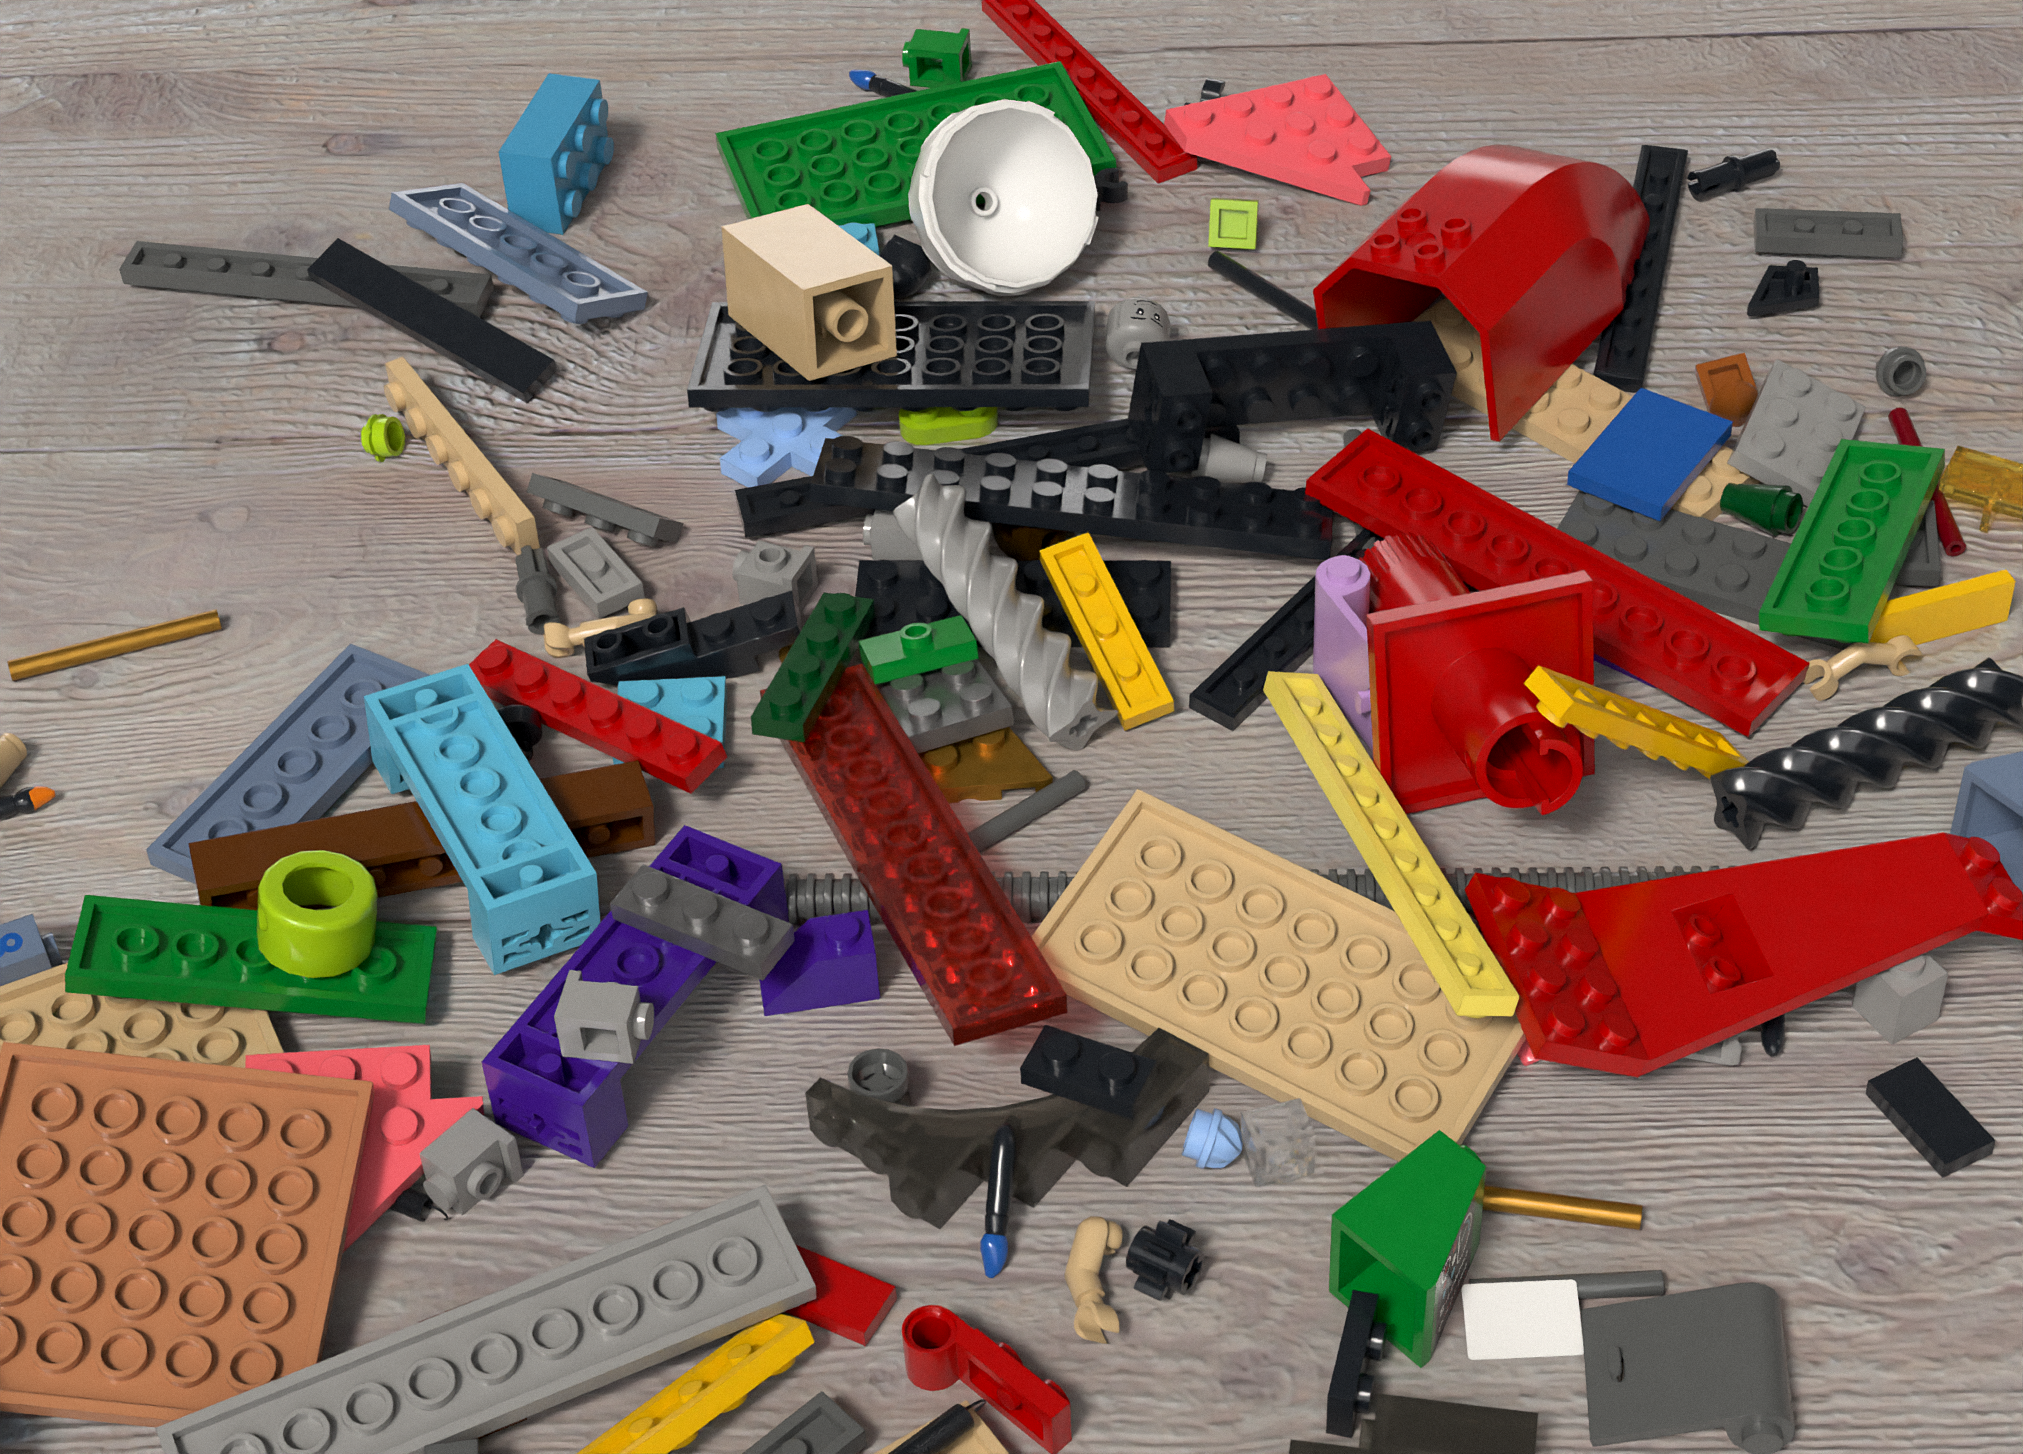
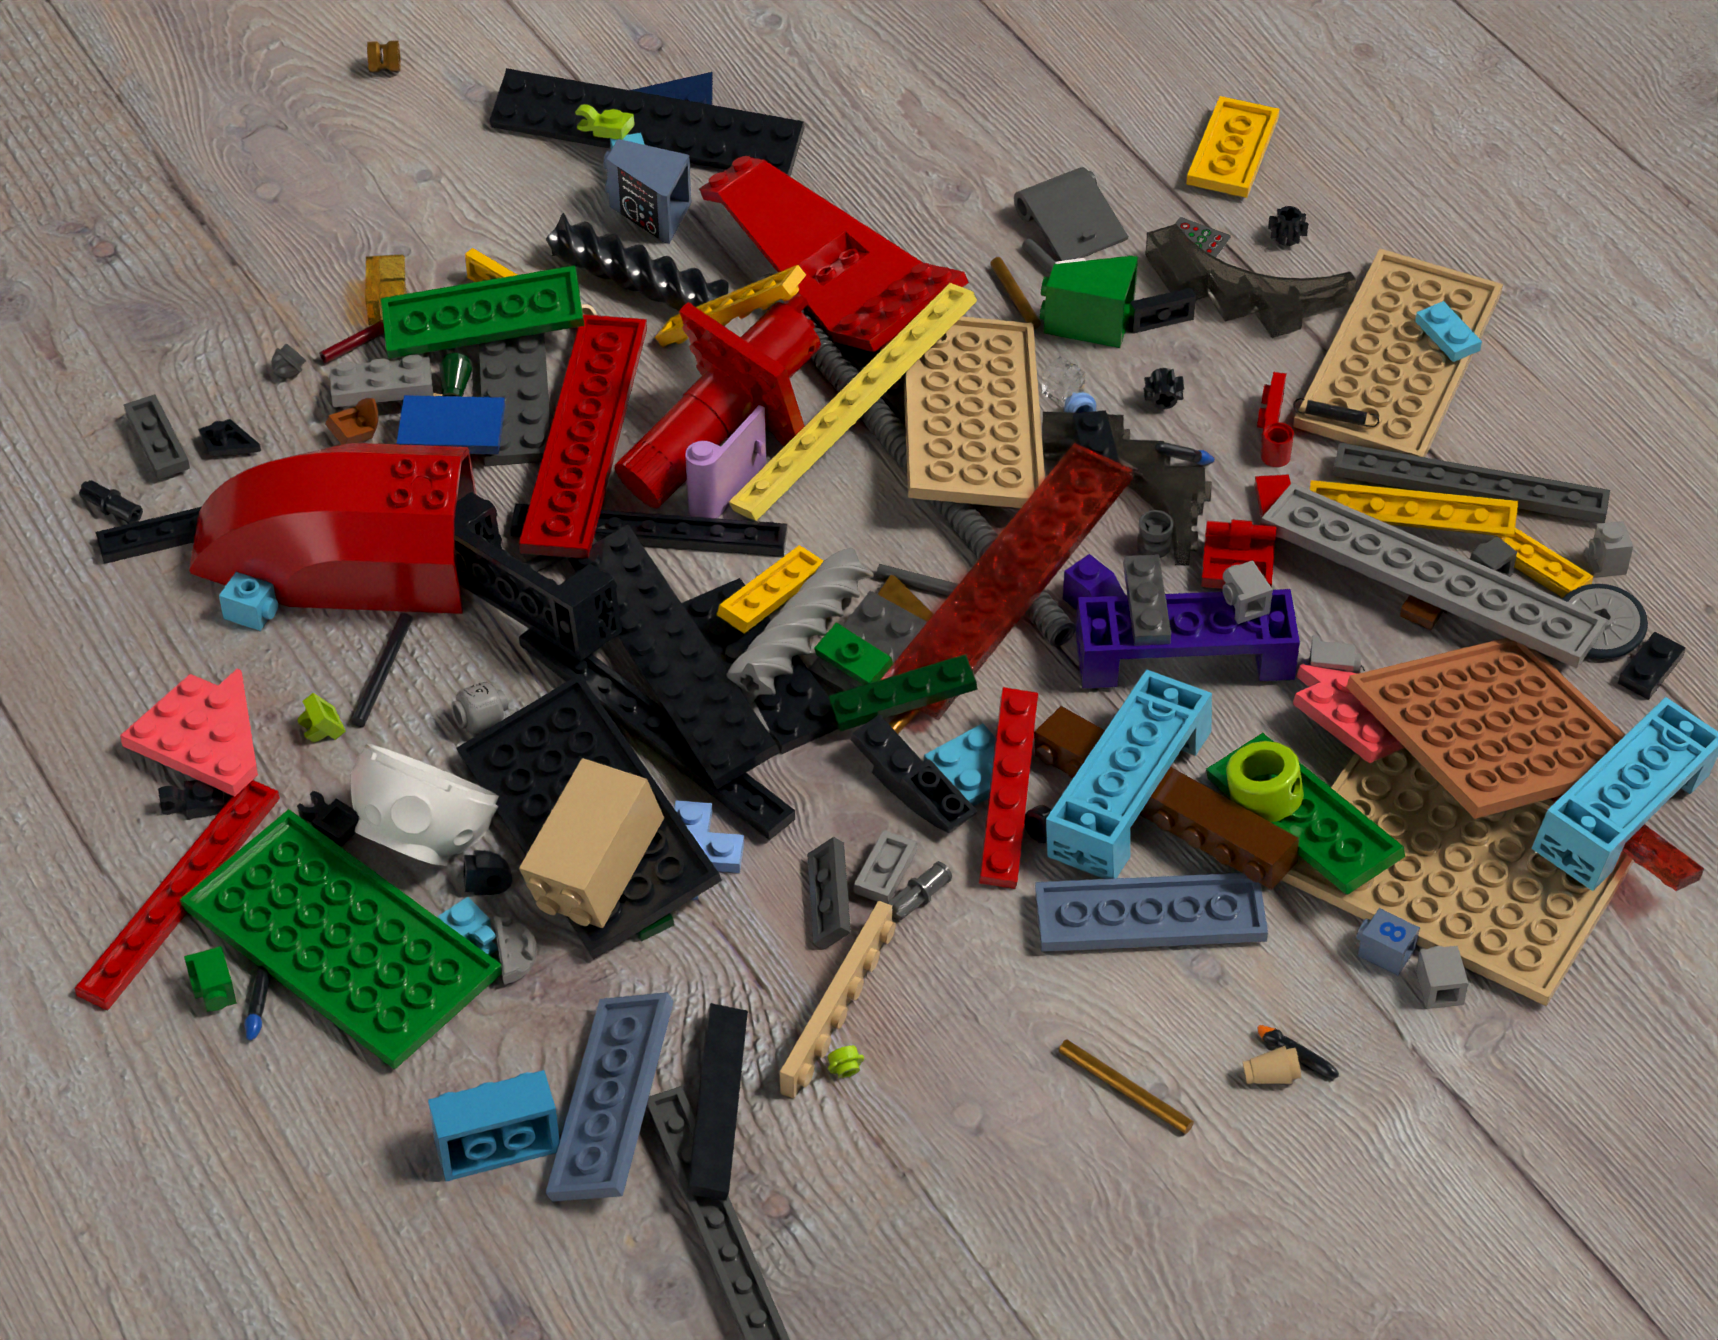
camera: 125 degrees left, 5 degrees up
(560, 639) = (928, 825): tan arm -> none
(752, 1150) = (1236, 544): none -> red plate
(775, 570) = (826, 773): light grey brick -> none
(1091, 1242) = (1186, 422): tan arm -> none
(1930, 1117) = (861, 191): black tile -> none

